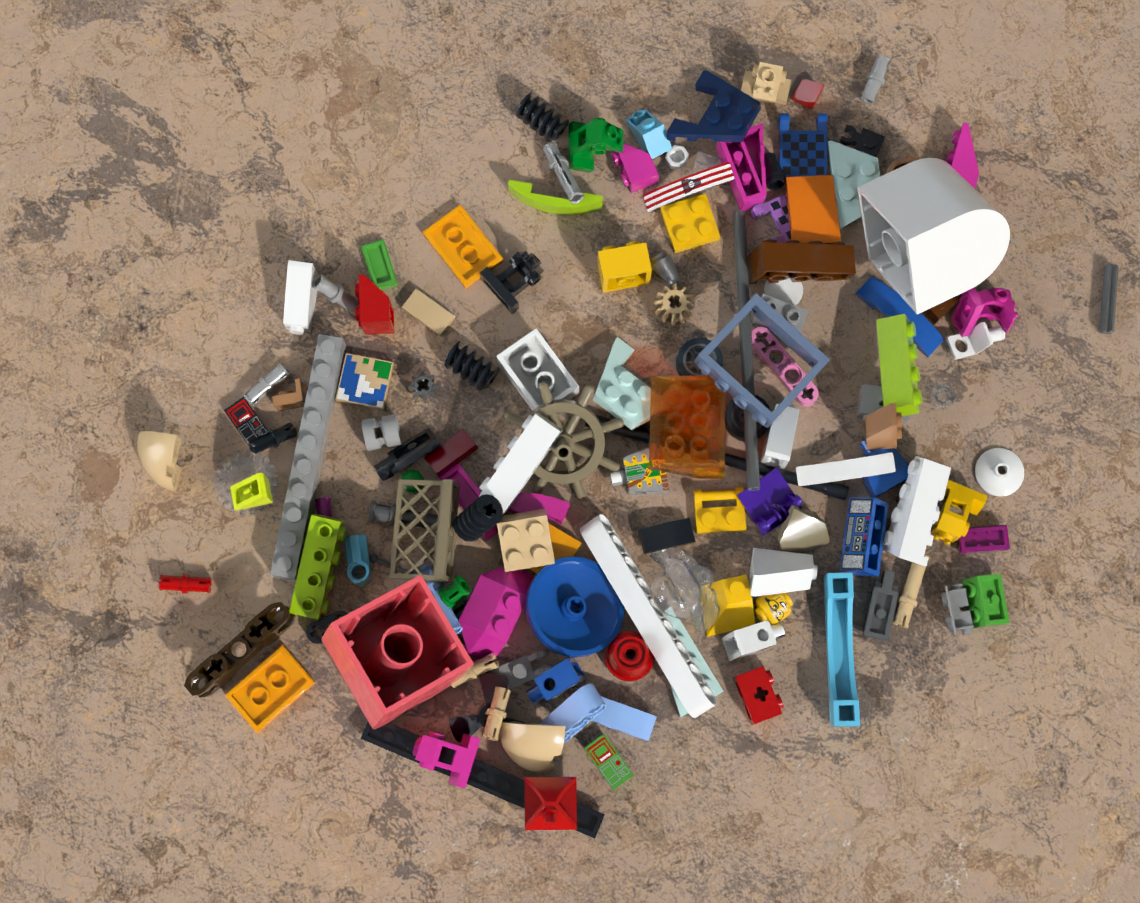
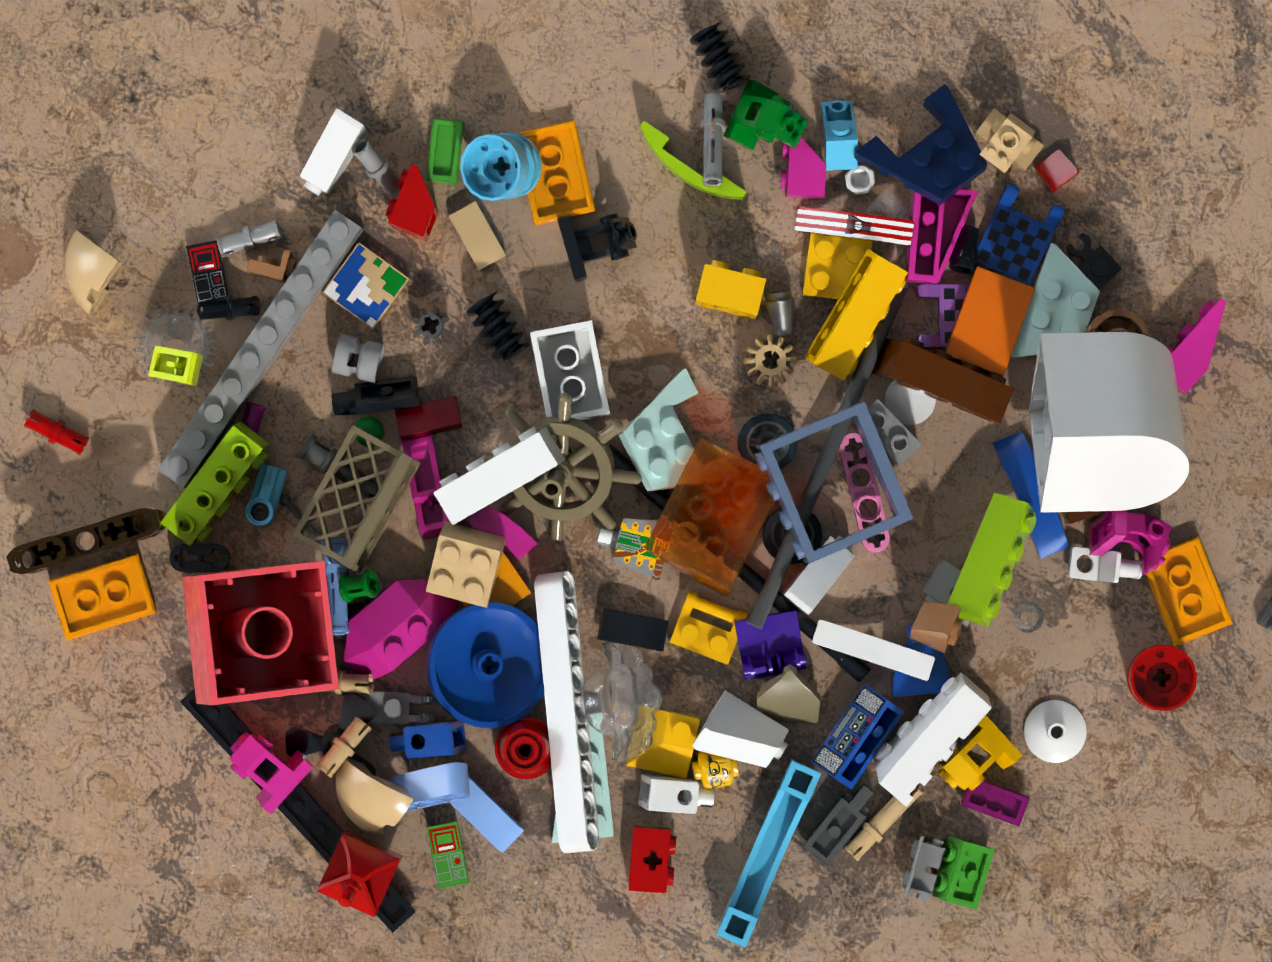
camera: 25 degrees right, 10 degrees up
(411, 251) = (485, 166): none -> medium azure wheel
(478, 518) = (421, 517): black piece -> none
(719, 244) = (856, 315): none -> yellow brick
(875, 79) = (1145, 192): light grey pin -> none
(1042, 334) = (1188, 593): none -> light orange tile
(1059, 383) = (1175, 690): none -> red wheel

